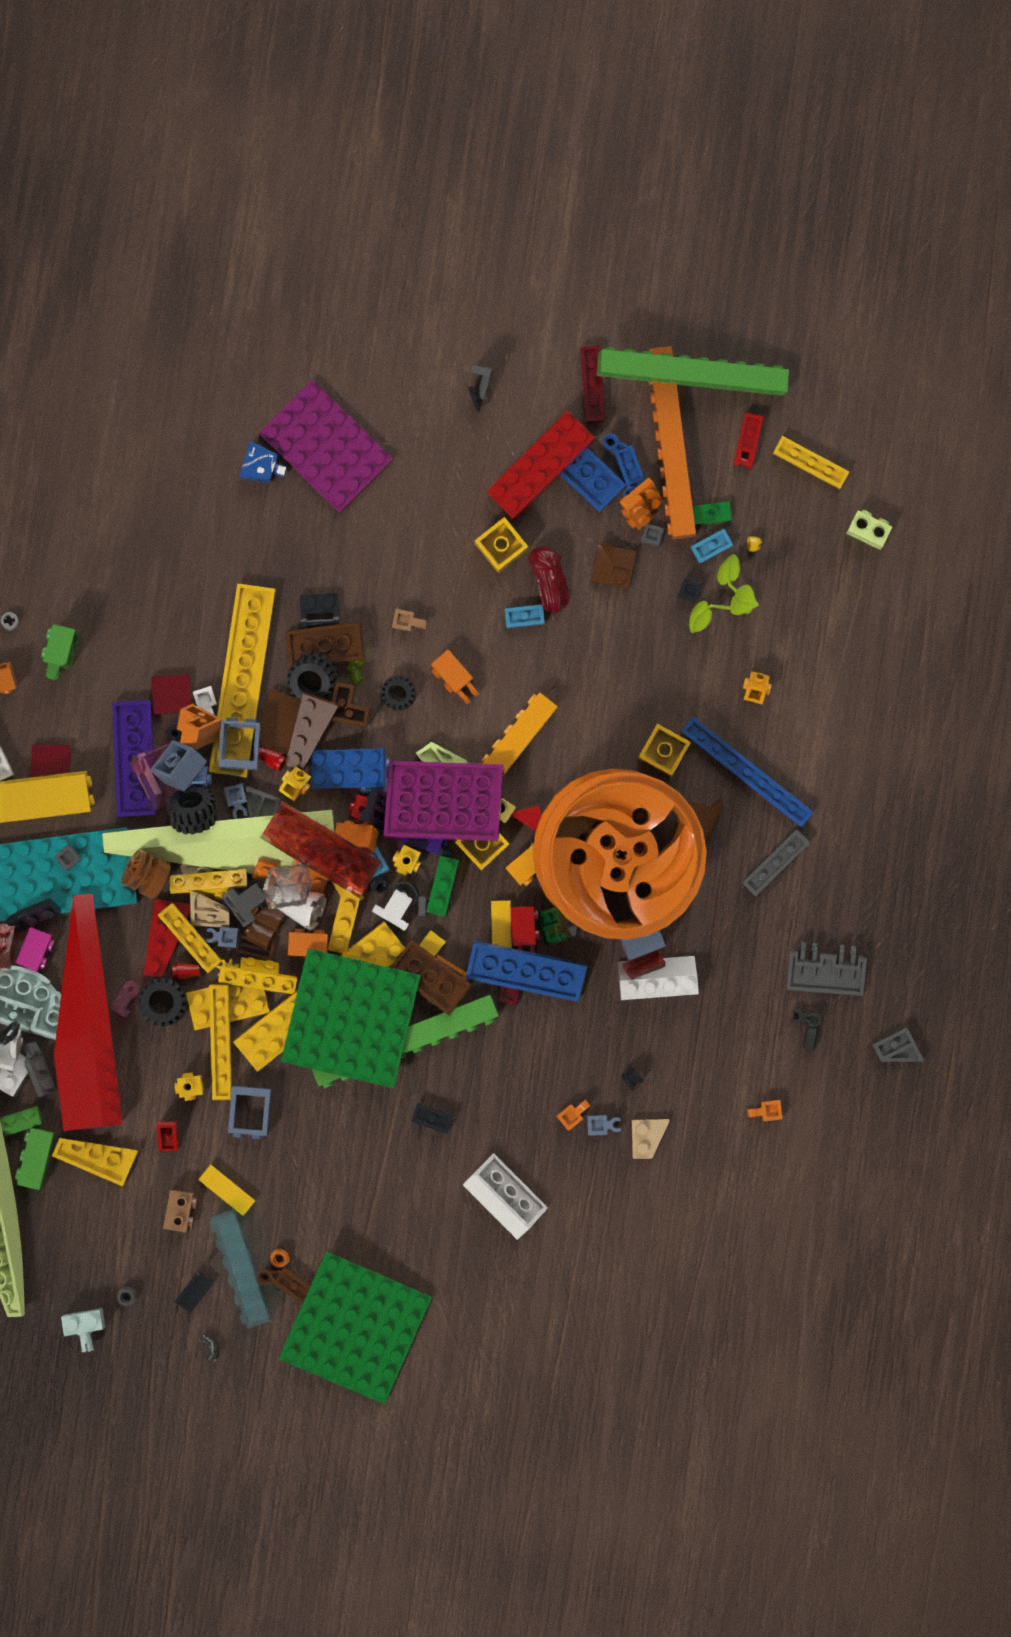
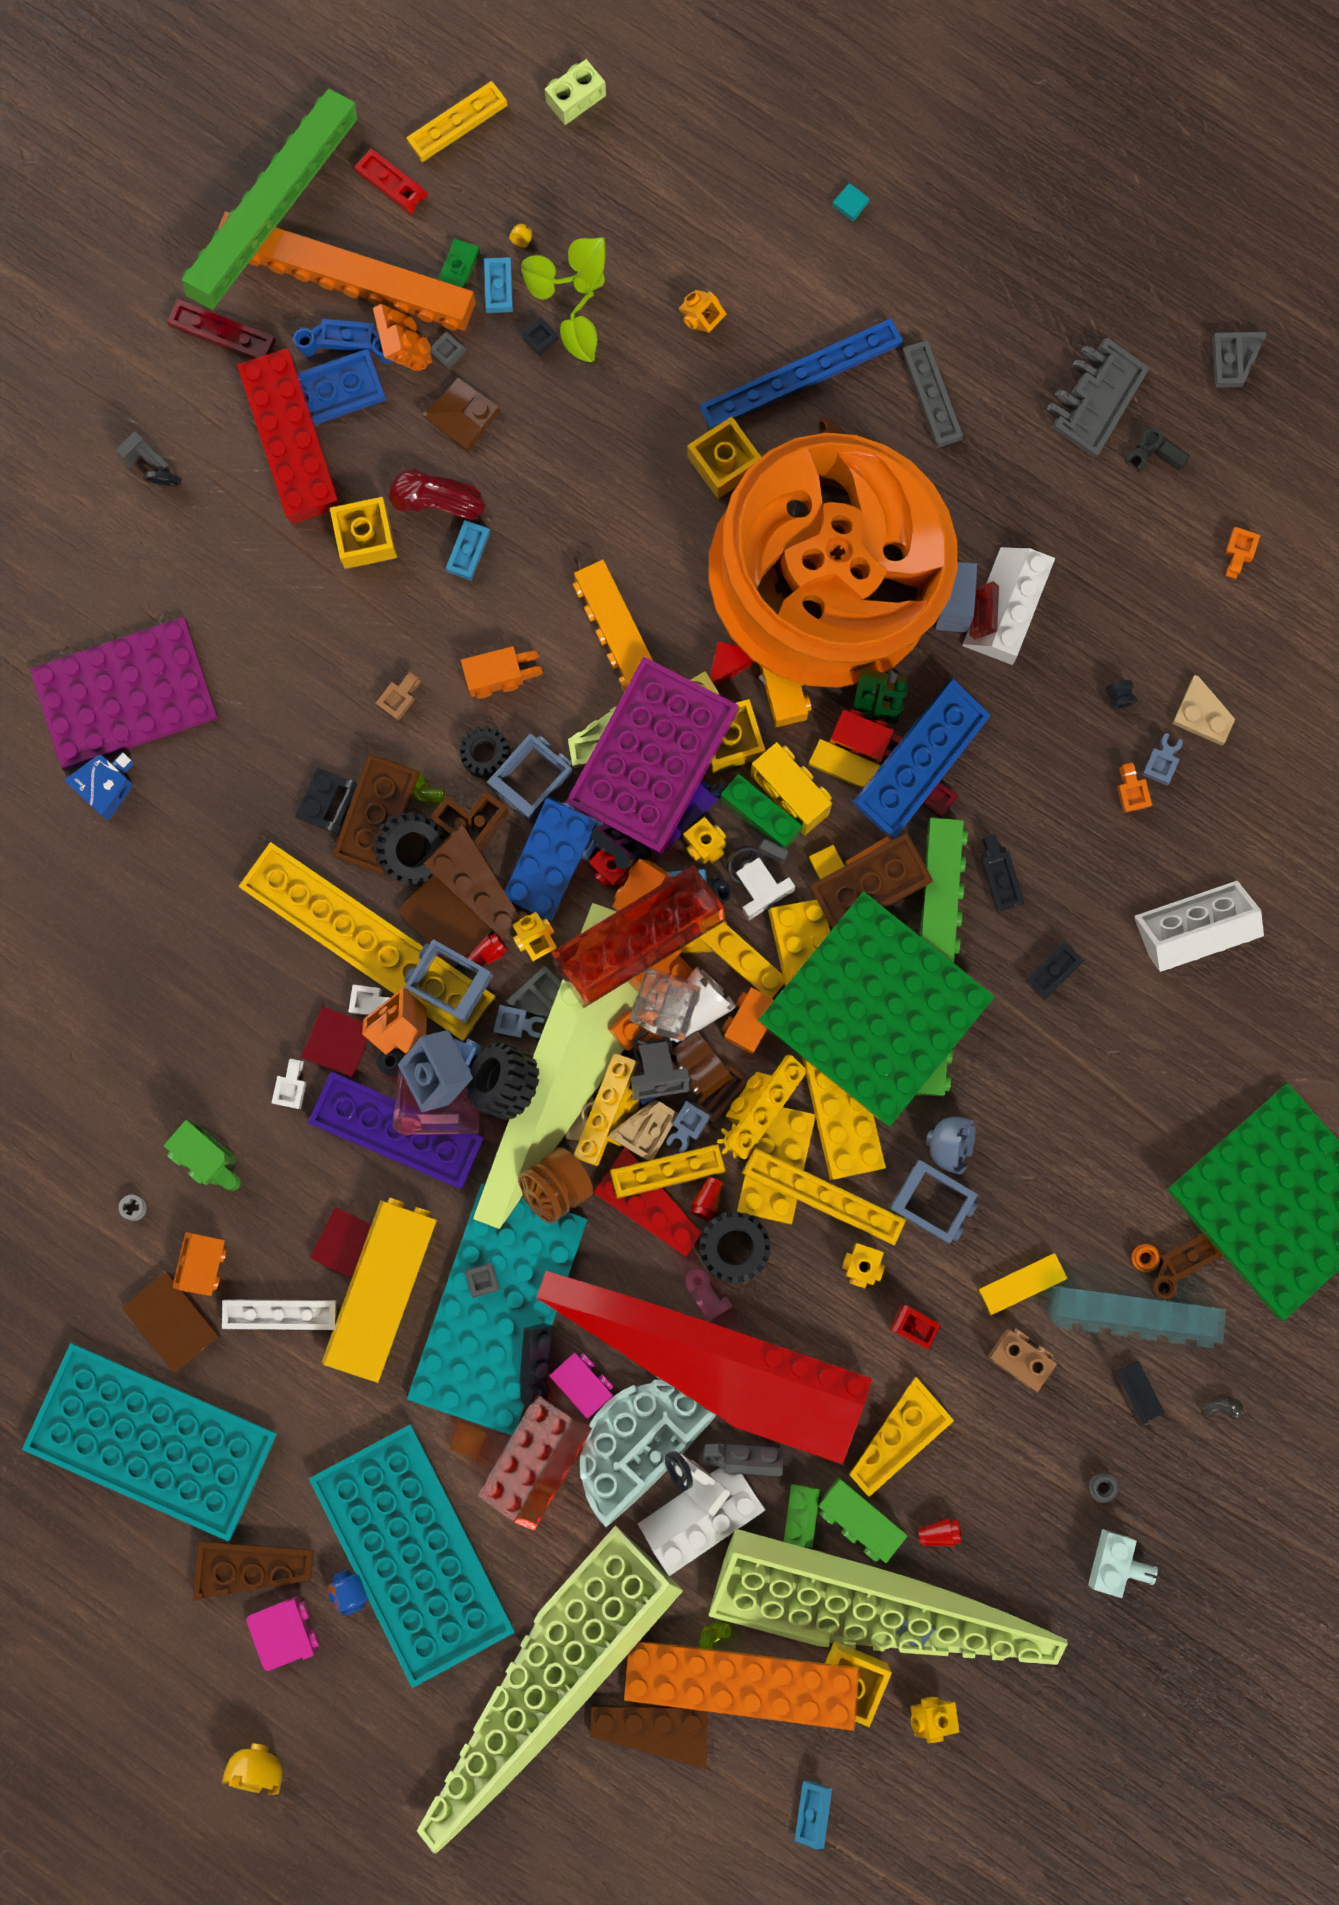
camera: 65 degrees left, 5 degrees down
(51, 1210) = (941, 1533): none -> red cone
(127, 679) = (290, 1090): none -> white plate
(291, 1105) = (951, 1143): none -> sand blue cylinder
(376, 726) = (541, 746): none -> sand blue window
(466, 898) = (791, 787): none -> yellow brick
(476, 1056) = (1000, 875): none -> black hinge
(883, 747) = (851, 202): none -> teal tile

